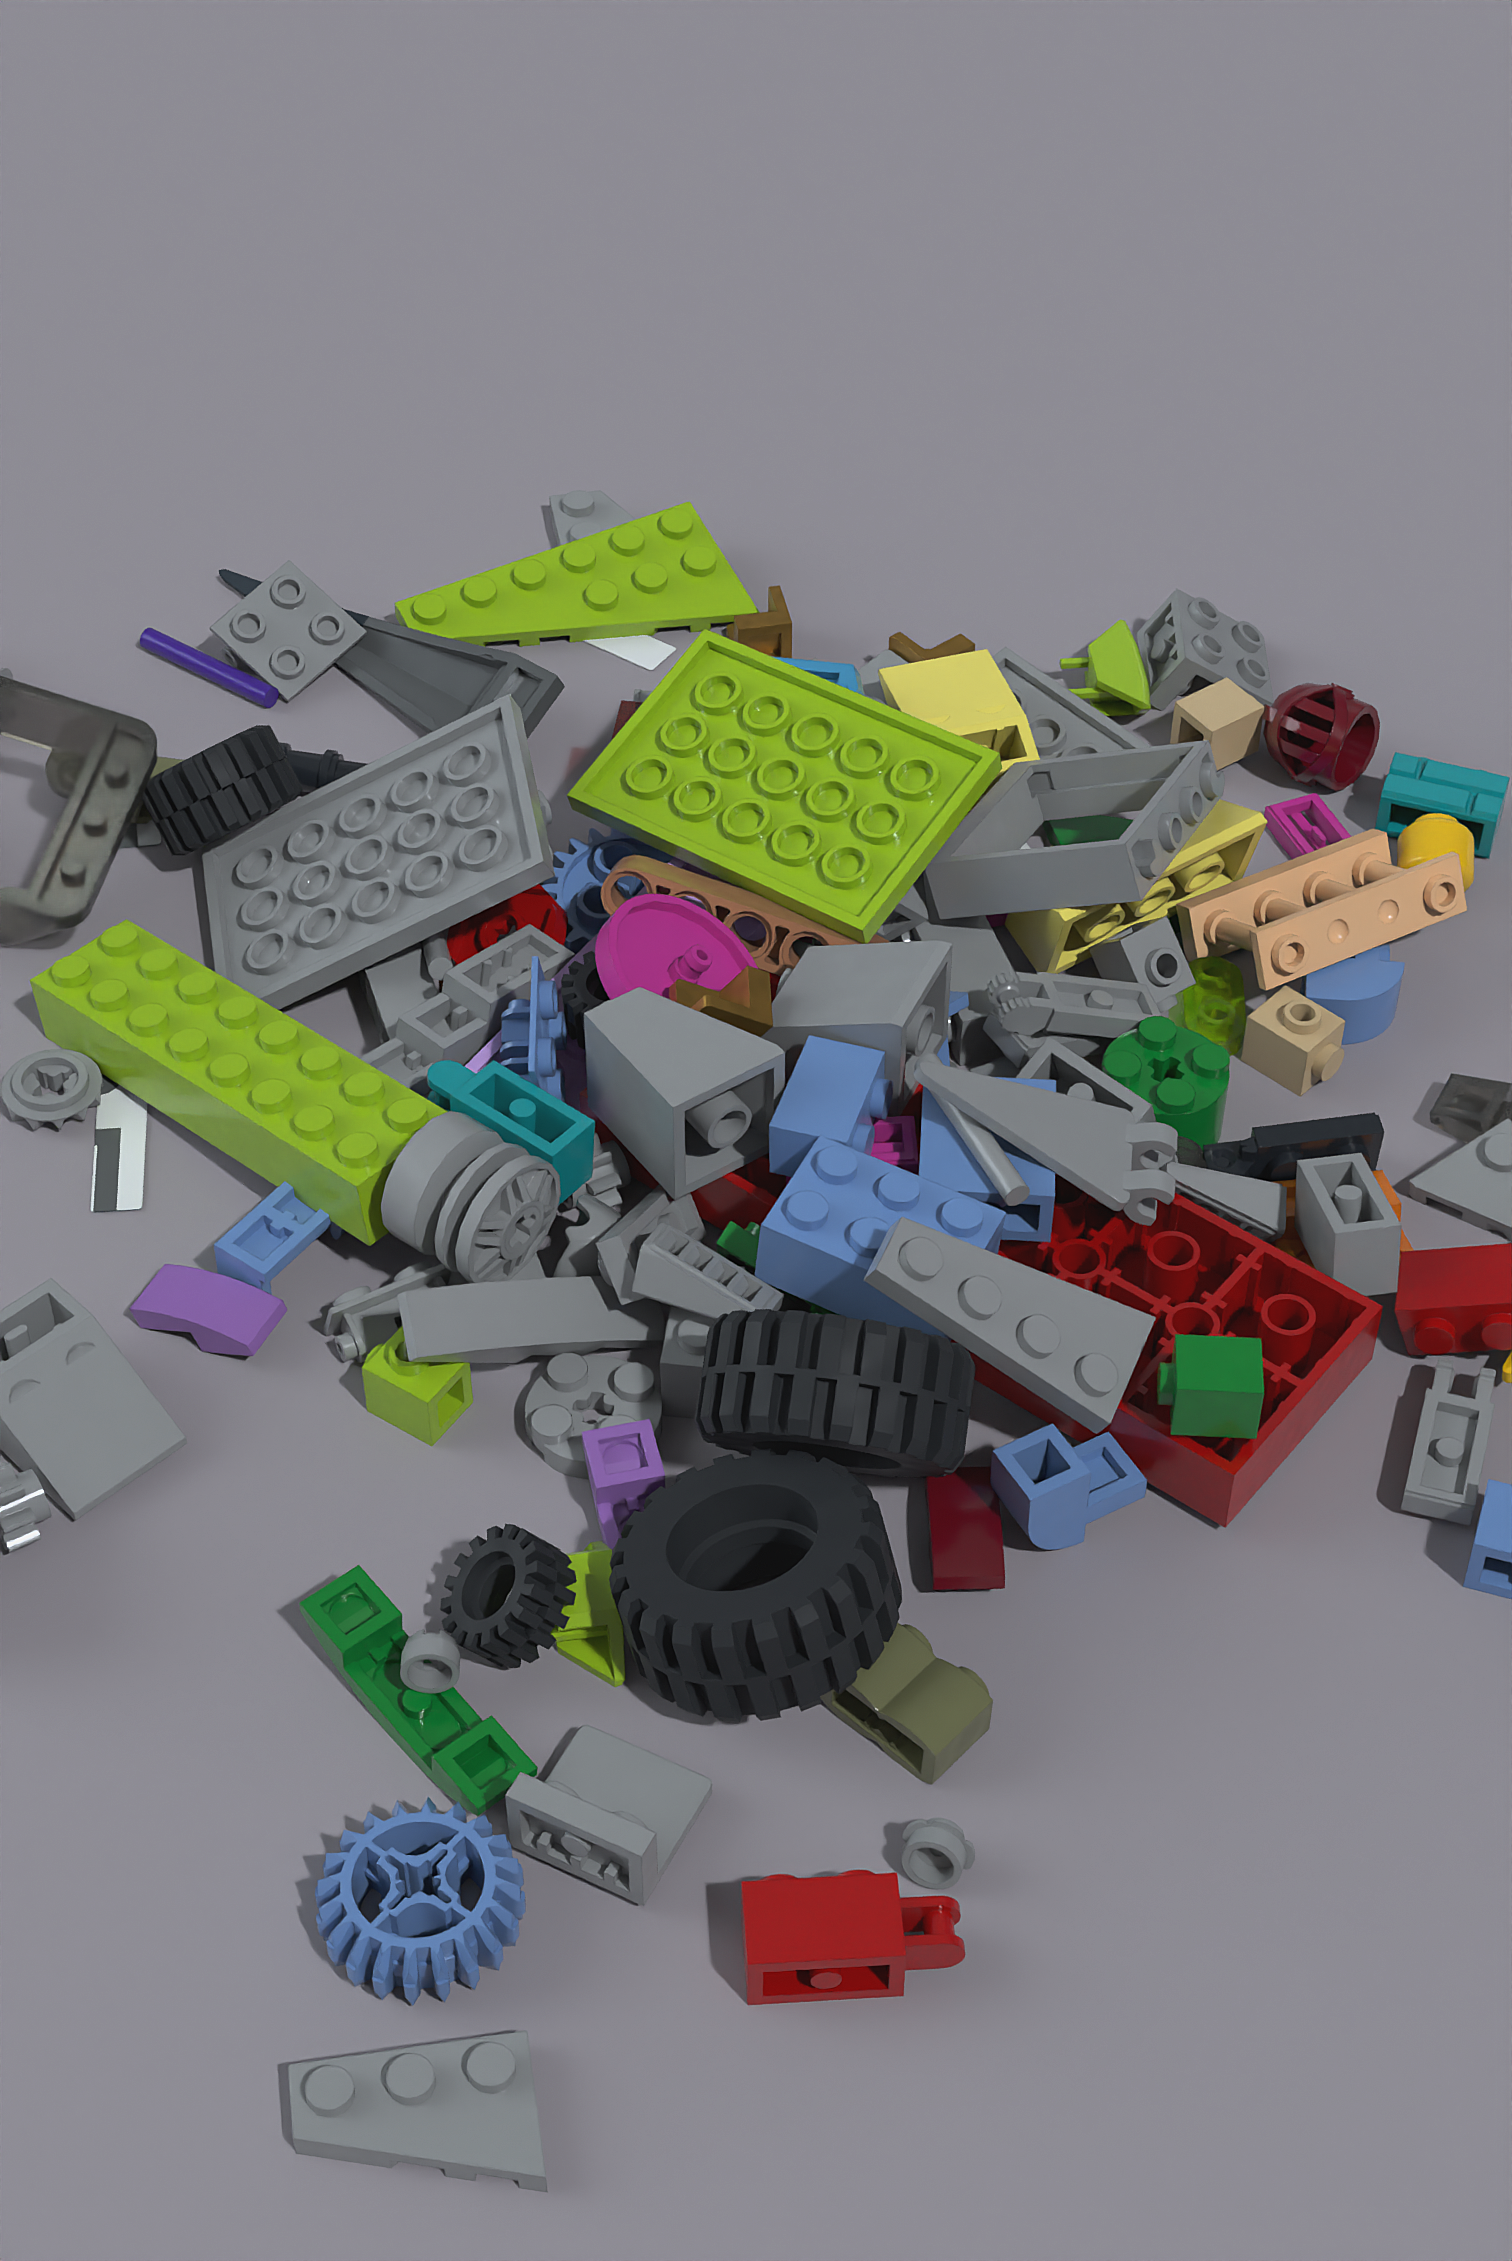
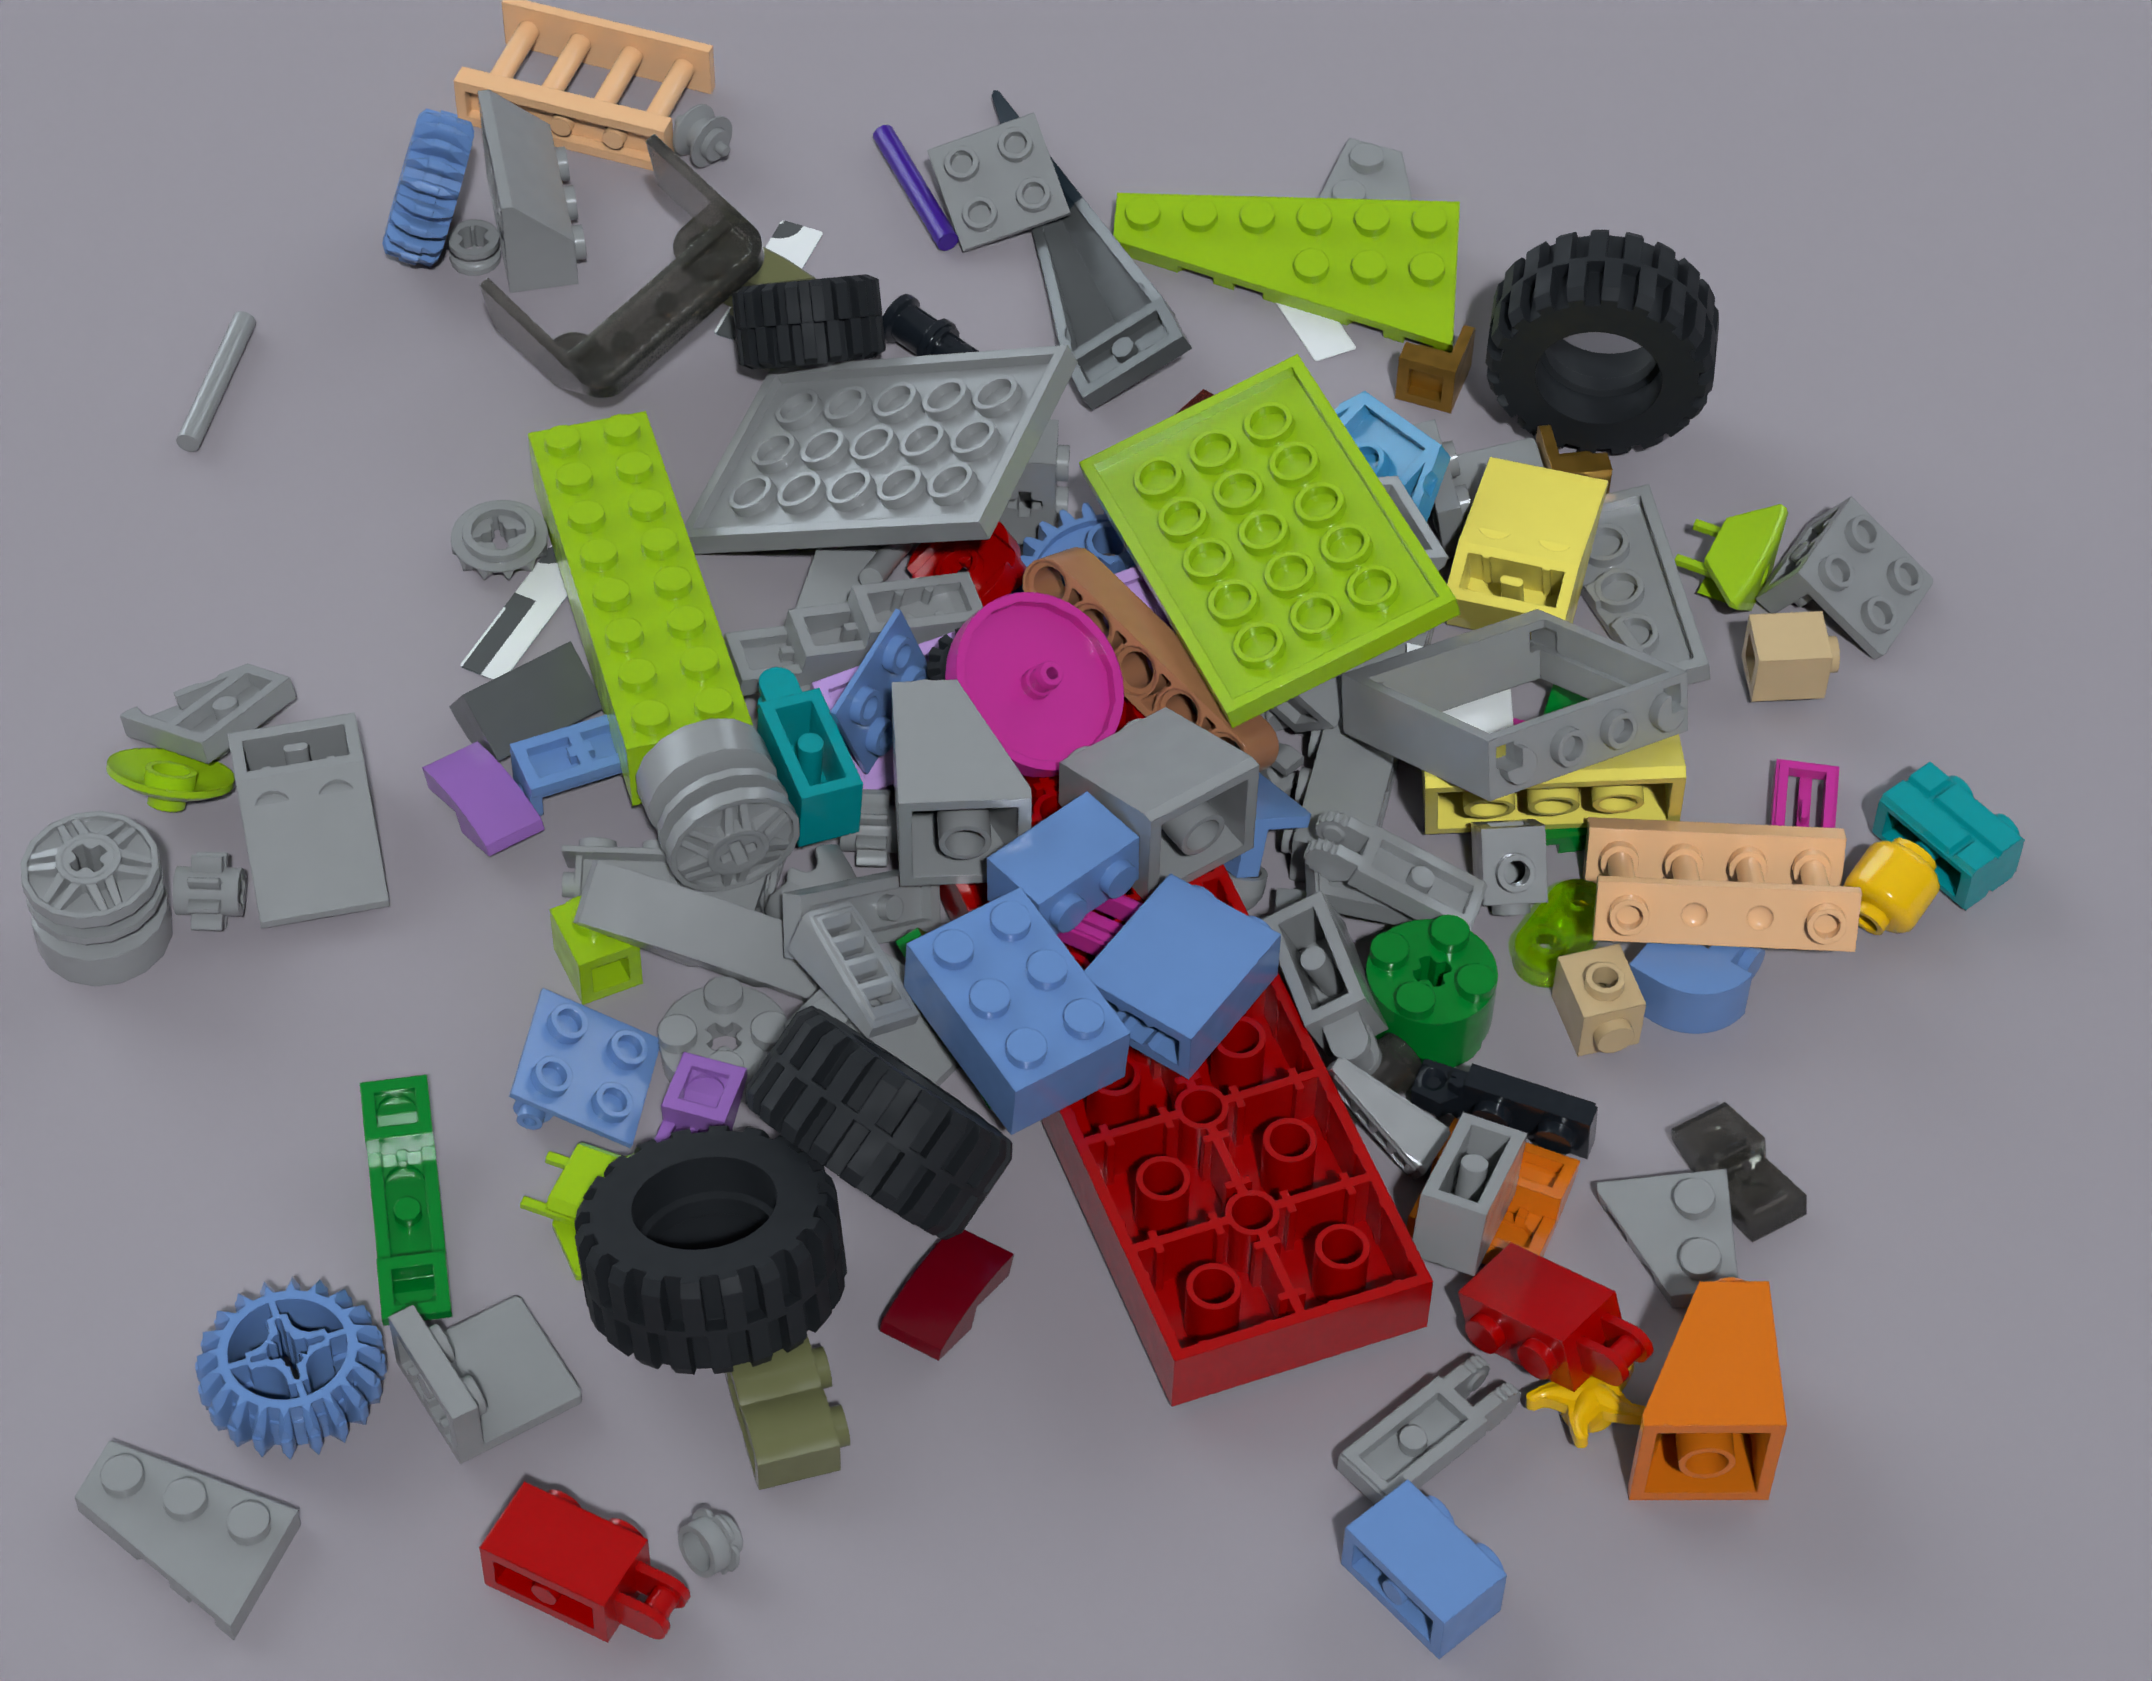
camera: 30 degrees right, 5 degrees up
(190, 1209) = (528, 701): none -> dark grey brick
(426, 1676) = (429, 1182): light grey hinge -> none
(482, 1486) = (583, 1070): none -> medium blue hinge
(538, 1584) = (524, 1160): black tyre -> none
(741, 1003) = (1033, 736): pearl gold panel -> none
(879, 504) = (1612, 289): none -> black tyre
(984, 1148) = (1162, 944): light grey bar -> none
(1022, 1321) = (1073, 1138): light grey wing -> none
(1060, 1487) = (1032, 1304): medium blue brick -> none
(1070, 1135) = (1246, 990): light grey flag -> none
(1213, 1386) = (1196, 1274): green brick -> none
(1321, 734) = (1880, 712): dark red helmet -> none

